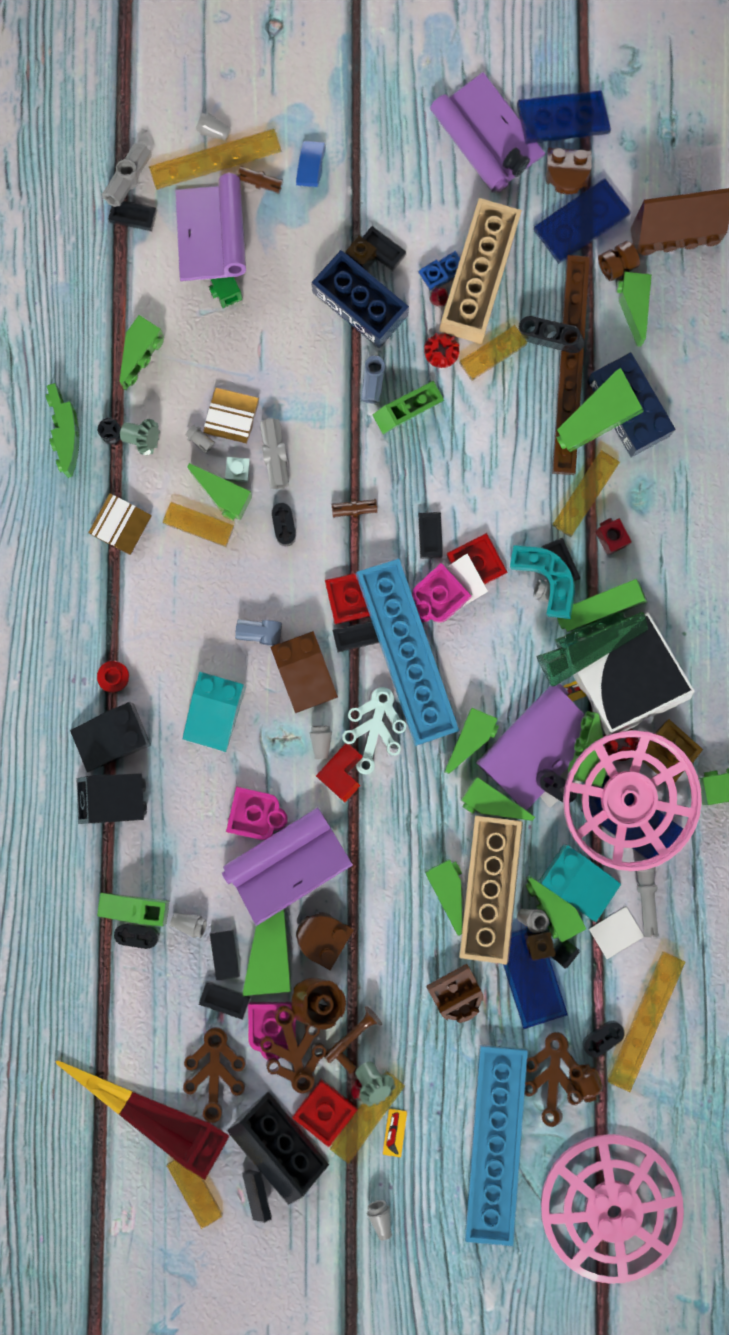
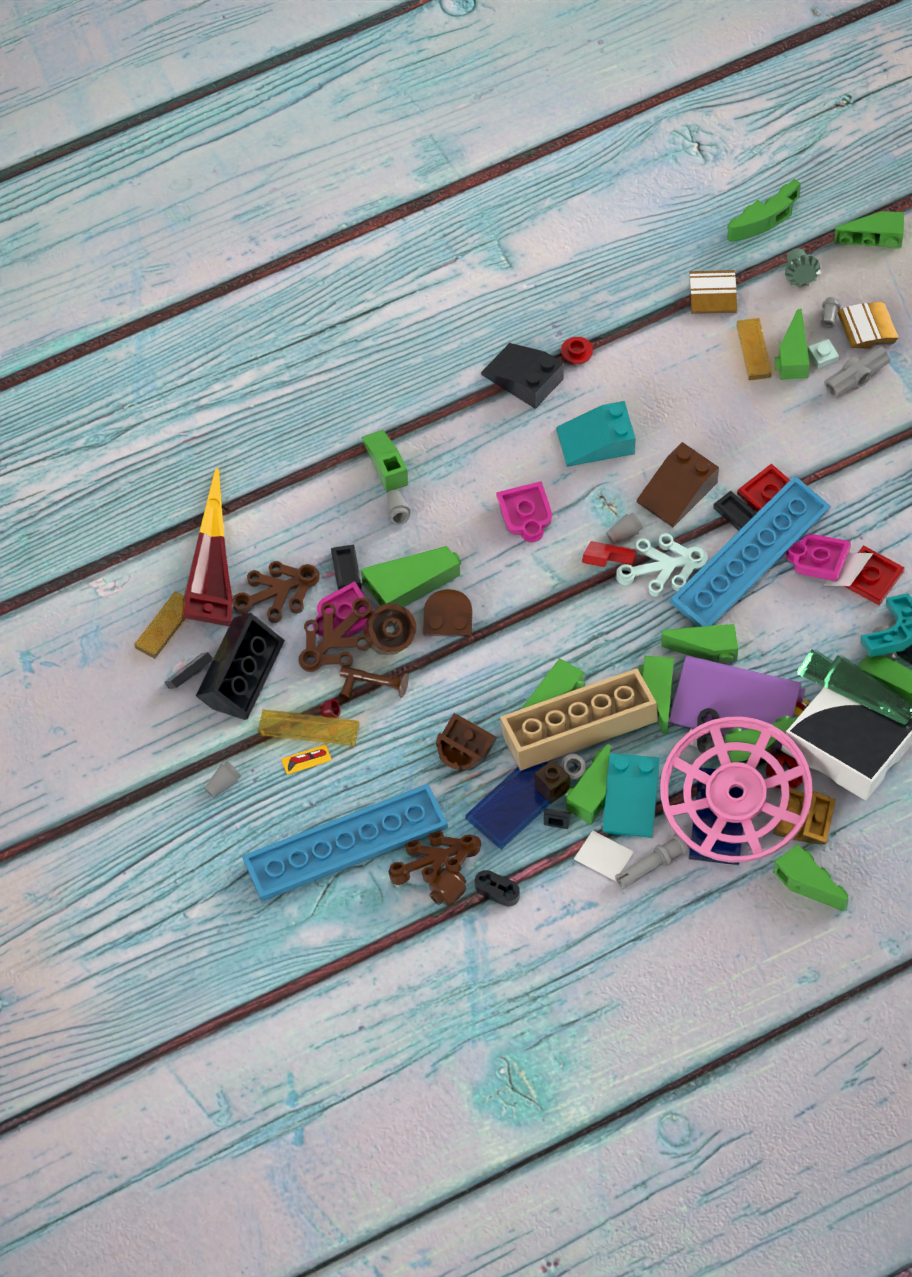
camera: 65 degrees right, 25 degrees down
(106, 427) = (785, 241): black wheel -> none
(110, 798) = (470, 394): black slope -> none
(136, 941) = (366, 473): black beam -> none
(224, 955) = (386, 547): black tile -> none
(264, 632) = (690, 433): sand blue piece -> none
(287, 866) = (498, 549): medium lavender door -> none
(289, 523) = (801, 412): black beam -> none
(325, 1112) = (292, 691): red tile -> none
(354, 508) = (852, 455): reddish brown pin -> none
(375, 1086) = (341, 710): sand green gear -> none
(430, 535) = (870, 526): black tile -> none
(602, 1198) = (343, 984): bright pink dish -> none
(646, 1021) = (536, 917): clear yellow tile -> none

